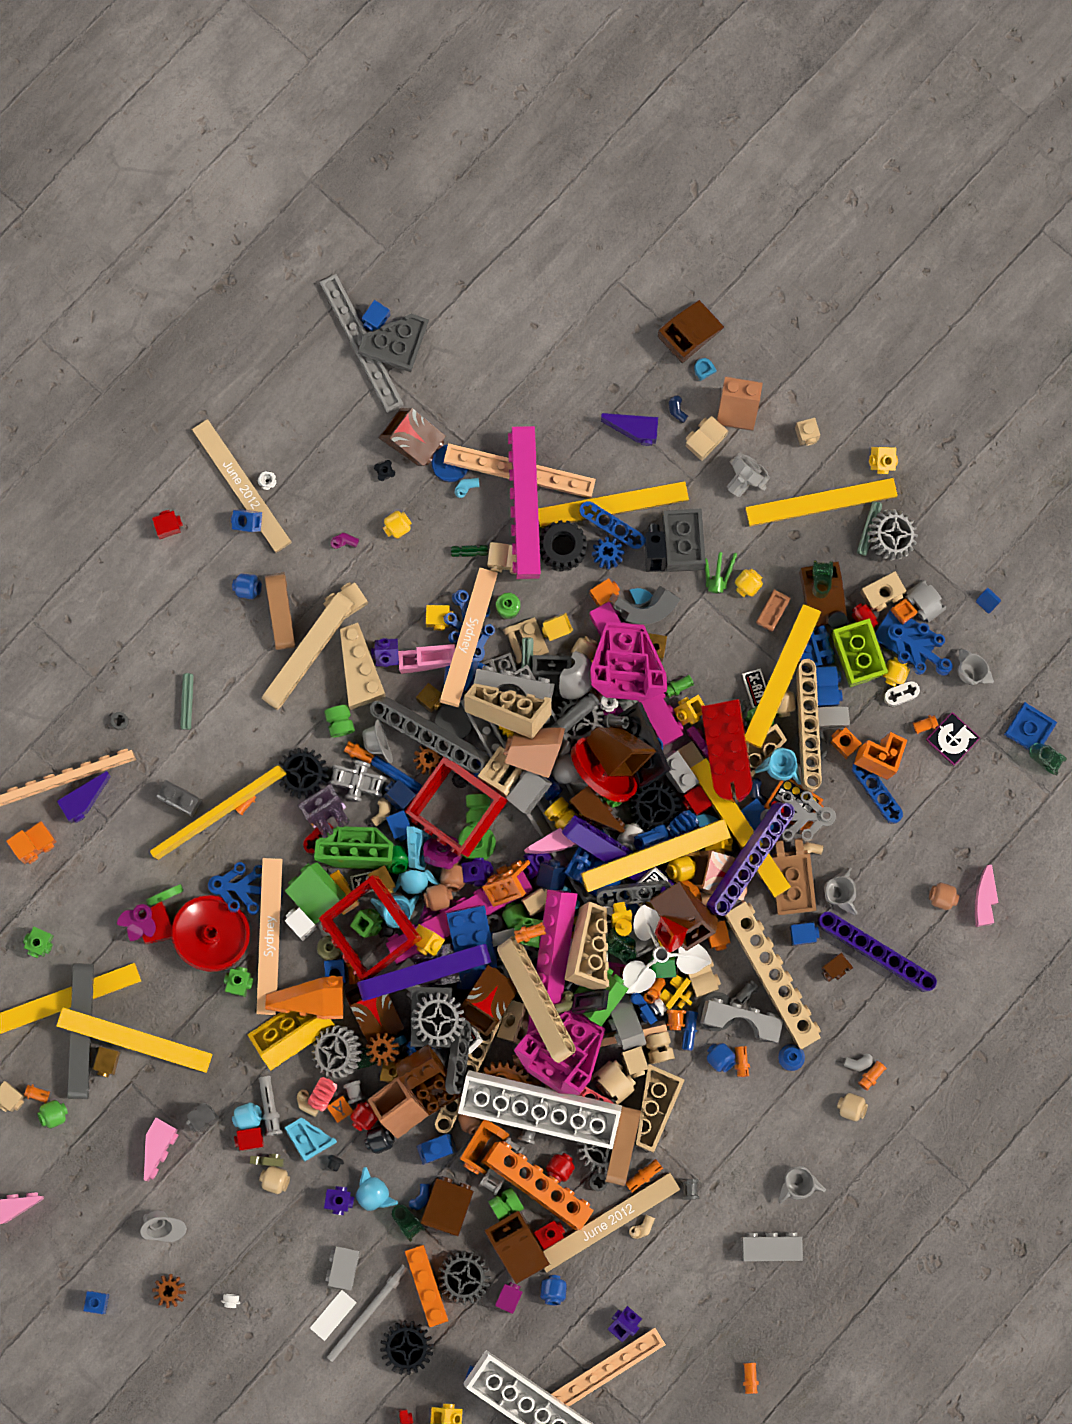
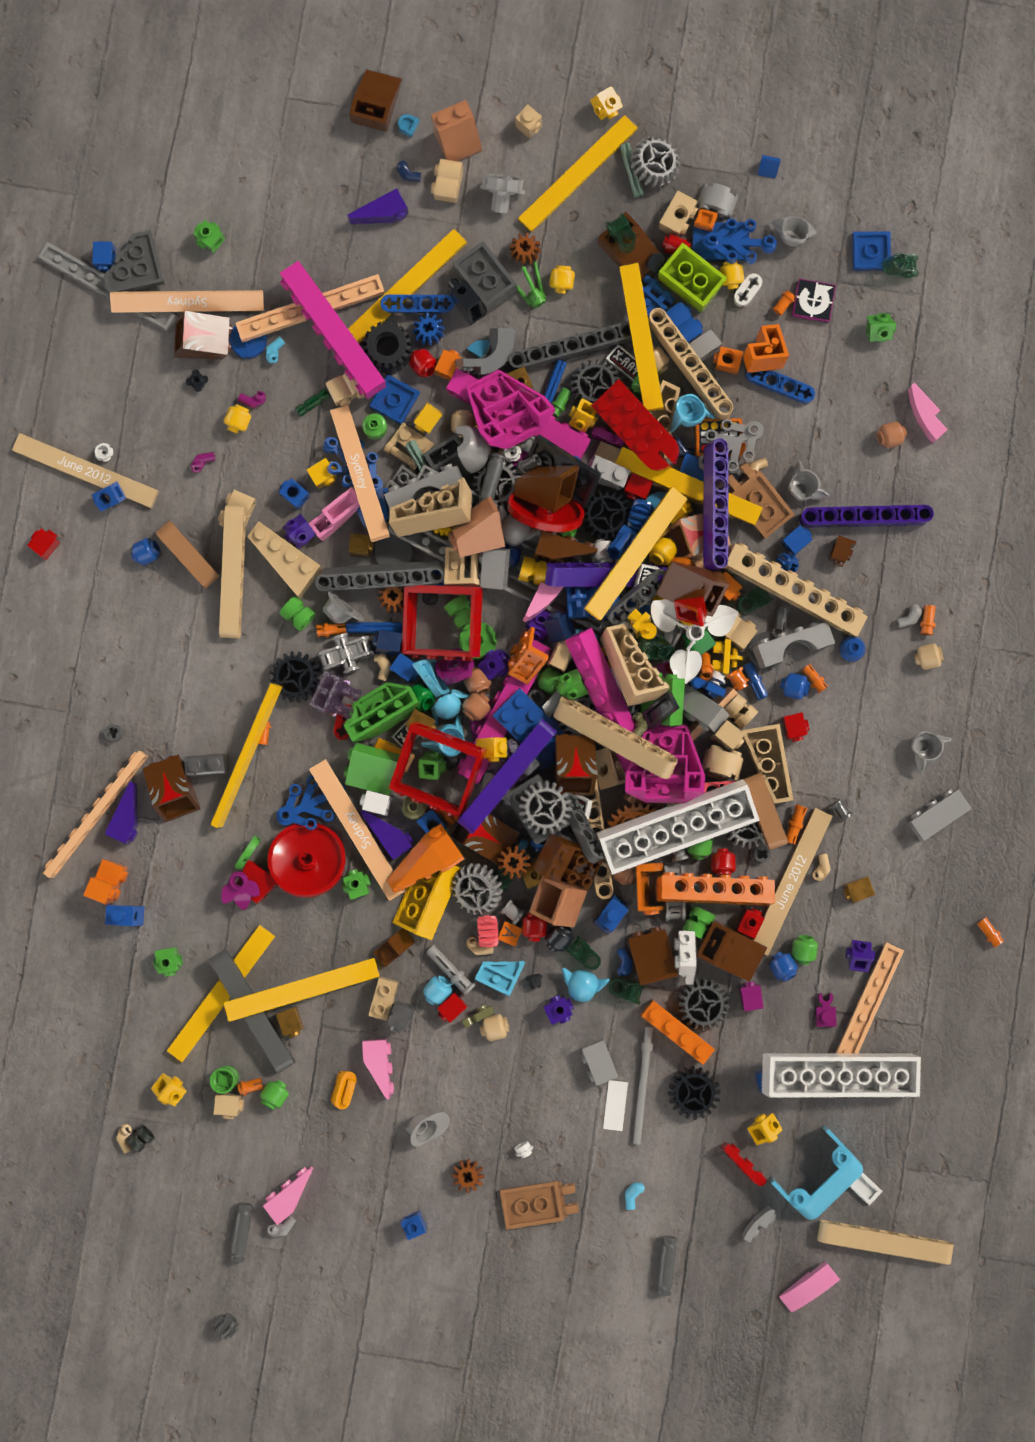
camera: 25 degrees left, 5 degrees up
(19, 1073) = (224, 1079): none -> bright green wheel
(28, 880) = (124, 915): none -> blue torso
(113, 1149) = (343, 1089): none -> light orange piece
(136, 799) = (170, 788): none -> reddish brown slope
(186, 705) = (159, 680): sand green axle -> none
(197, 1093) = (383, 998): none -> tan brick
(211, 1354) = (536, 1204): none -> medium nougat tile
(235, 1056) = (394, 947): none -> reddish brown slope
(293, 962) = (391, 837): none -> dark purple slope
(296, 1399) = (631, 1193): none -> medium azure arm
(391, 1166) = (583, 953): none -> clear green piece
(403, 626) = (299, 499): none -> blue brick
(420, 399) = (187, 301): none -> light nougat tile
(420, 518) = (254, 401): none -> magenta arm
(473, 1227) = (686, 955): none -> white plate
(474, 356) = (208, 236): none -> bright green brick
(526, 934) = (573, 686): orange pin -> none
(540, 594) = (395, 400): none -> blue tile
(549, 1143) = (701, 849): none -> bright green head
(563, 1356) = (825, 1014): none -> magenta plate
(581, 1287) = (804, 949): none -> bright green head
(583, 578) = (422, 363): none -> red head
(660, 1267) = (858, 889): none -> pearl gold brick
(685, 665) = (554, 380): none -> blue axle
(698, 1092) = (795, 726): none -> red brick
(709, 646) = (564, 353): none -> dark grey beam
(726, 537) = (517, 249): none -> dark orange gear
(732, 681) = (590, 381): none -> dark grey gear
(737, 961) = (756, 598): none -> clear green piece
(773, 610) = (597, 289): nougat plate -> none
(783, 947) = (788, 561): none -> blue gear
(994, 798) = (880, 327): none -> bright green brick

